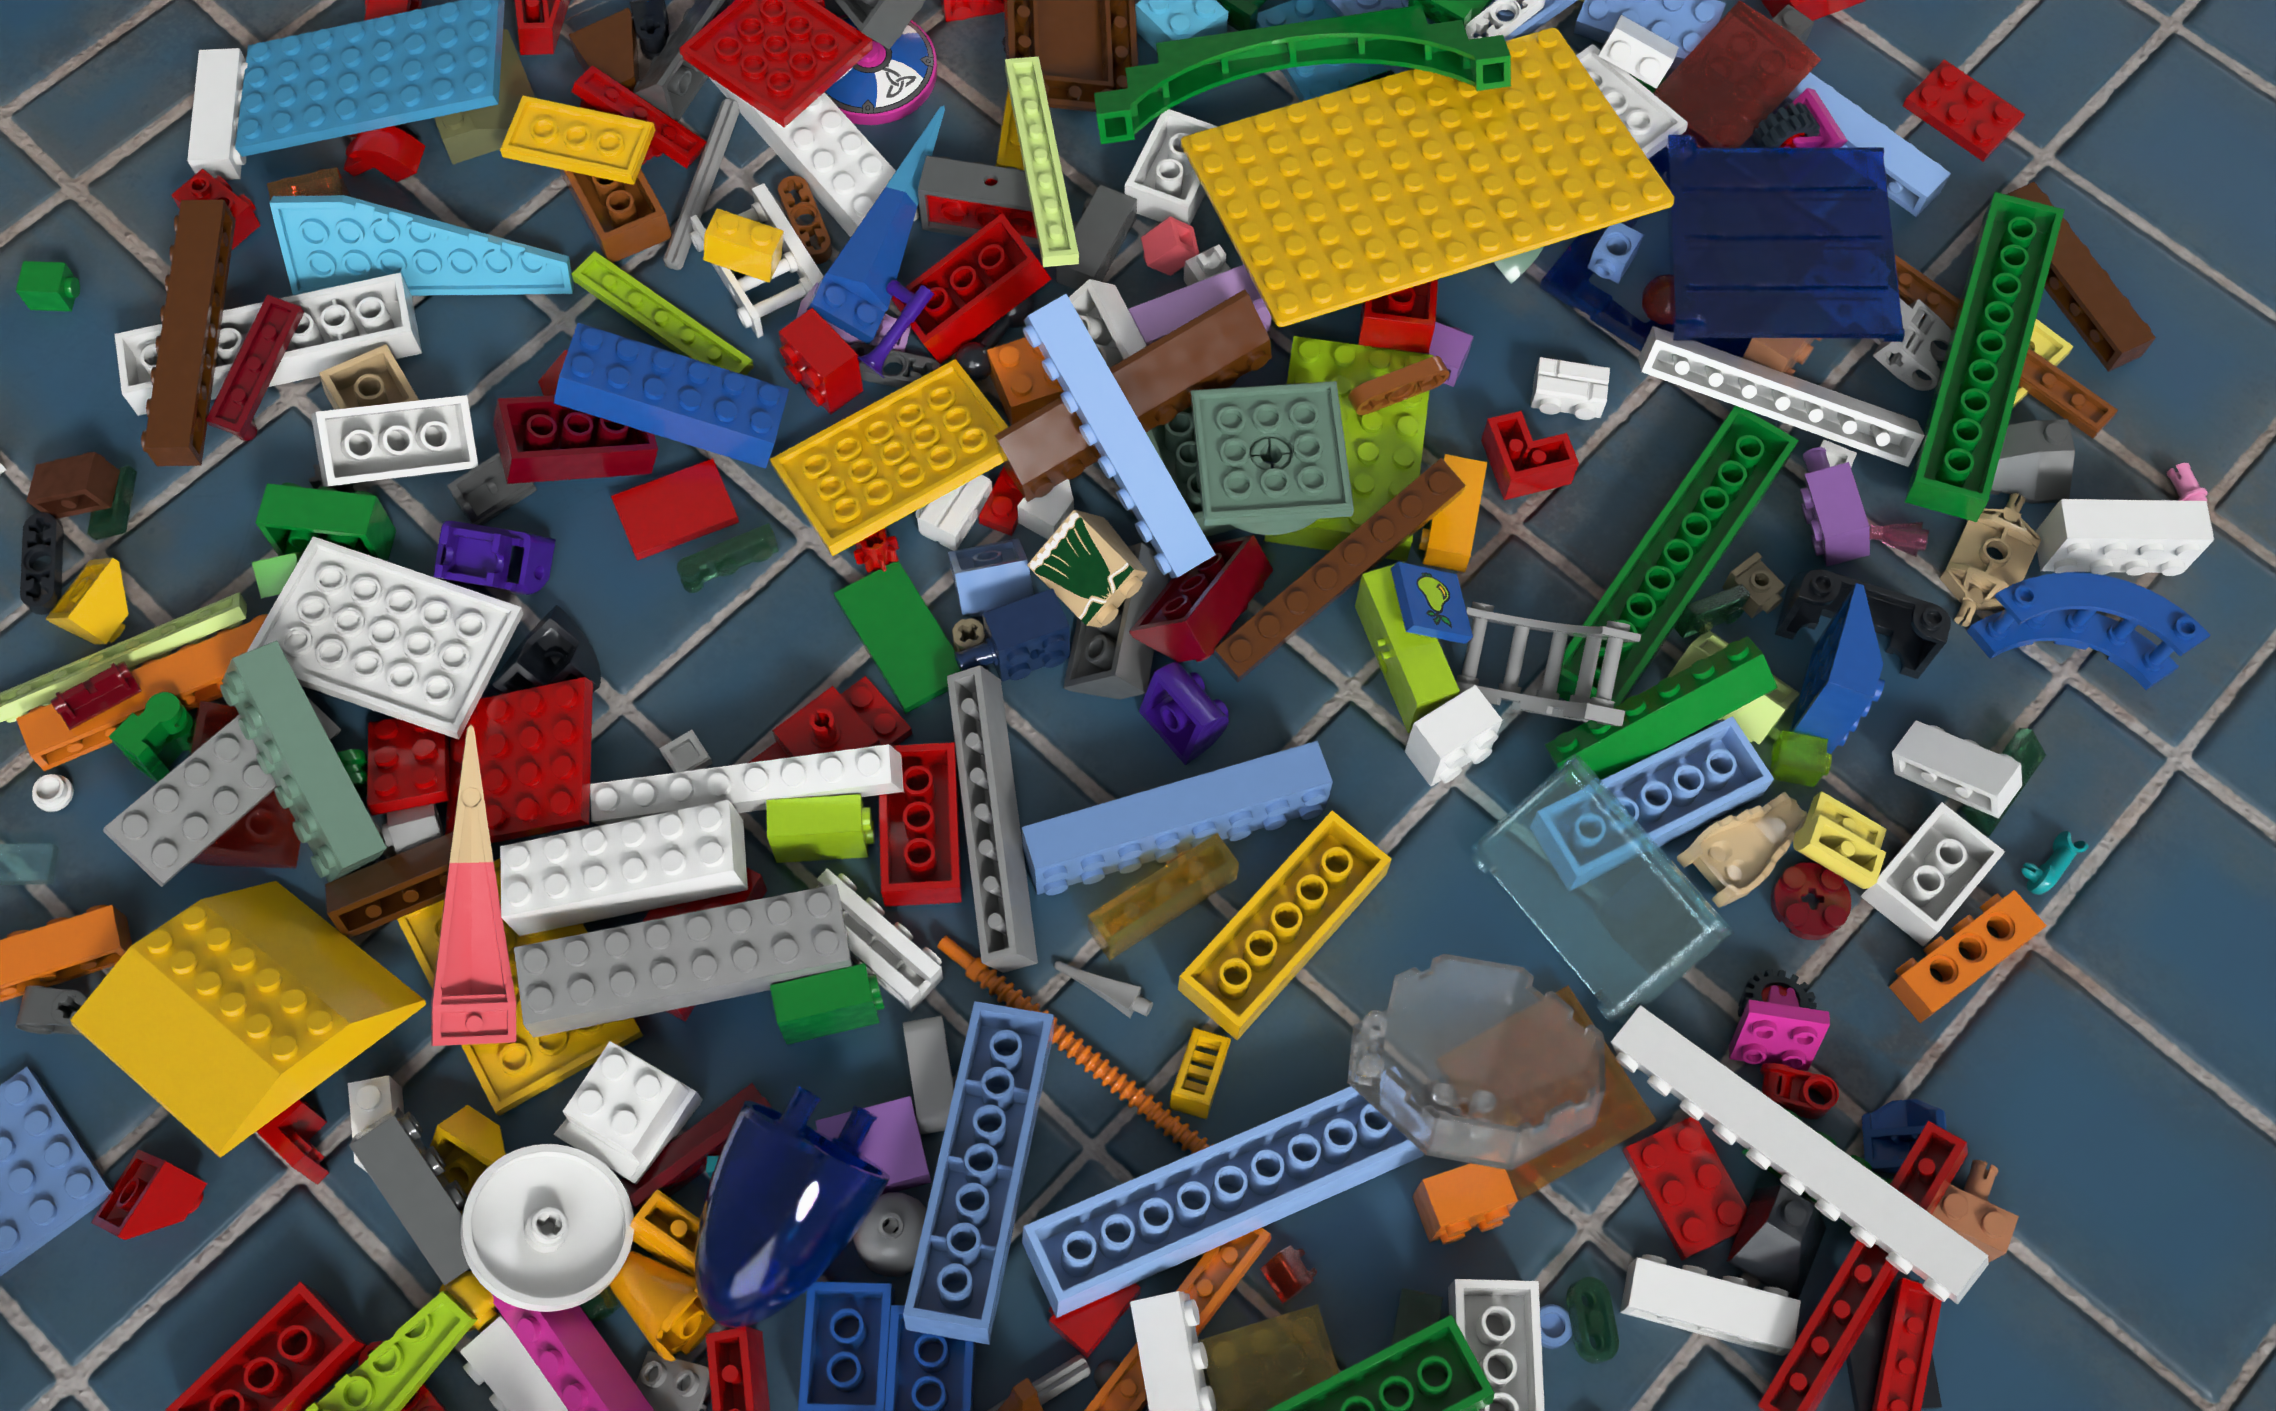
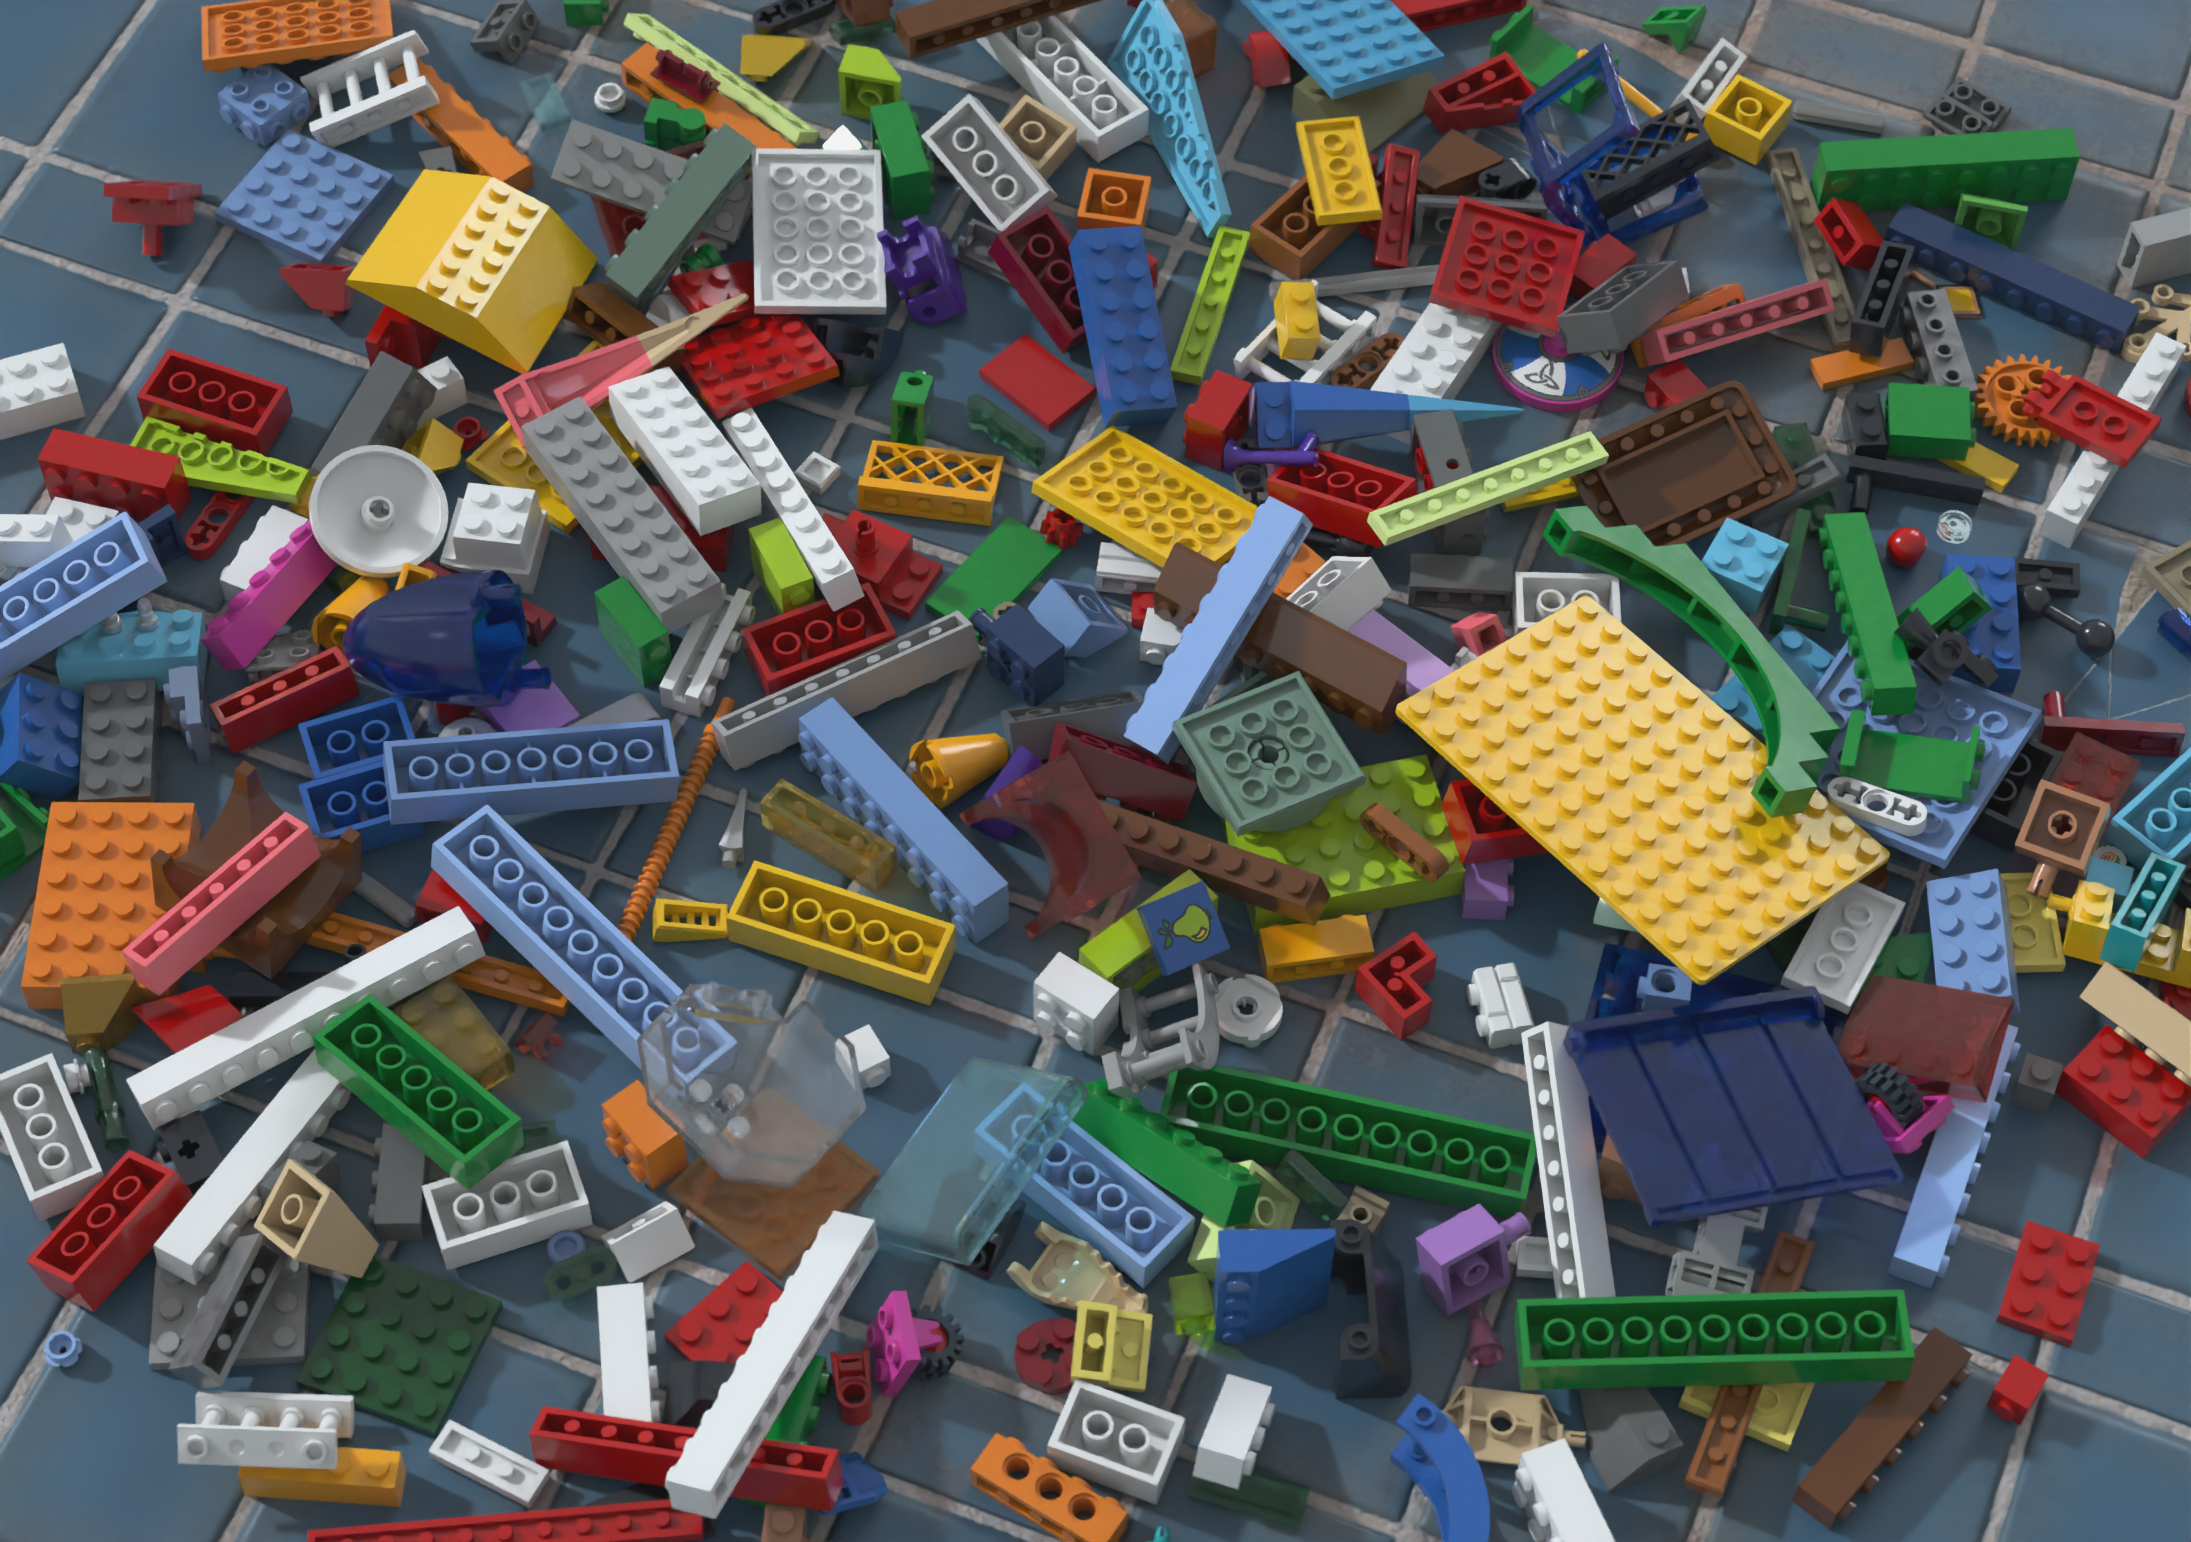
camera: 70 degrees right, 10 degrees down
(207, 518) = (866, 81): none -> lime slope
(255, 368) = (1009, 53): dark red piece -> none
(442, 1092) = (470, 426): none -> red plate
(501, 354) = (1114, 200): none -> orange brick
(660, 631) = (912, 395): none -> green torso
(780, 657) = (929, 498): none -> light orange fence
(1089, 568) = (1103, 668): slope -> none
(1127, 748) = (956, 765): none -> light orange cone
(1304, 663) = (1074, 834): none -> clear red piece
(1424, 946) = (871, 1057): none -> white brick
(1499, 578) = (1266, 1015): none -> white plate
(1568, 1238) = (649, 1241): none -> white panel
(1638, 51) = (1914, 941): white brick -> none
(2063, 169) = (2017, 1390): none -> red brick

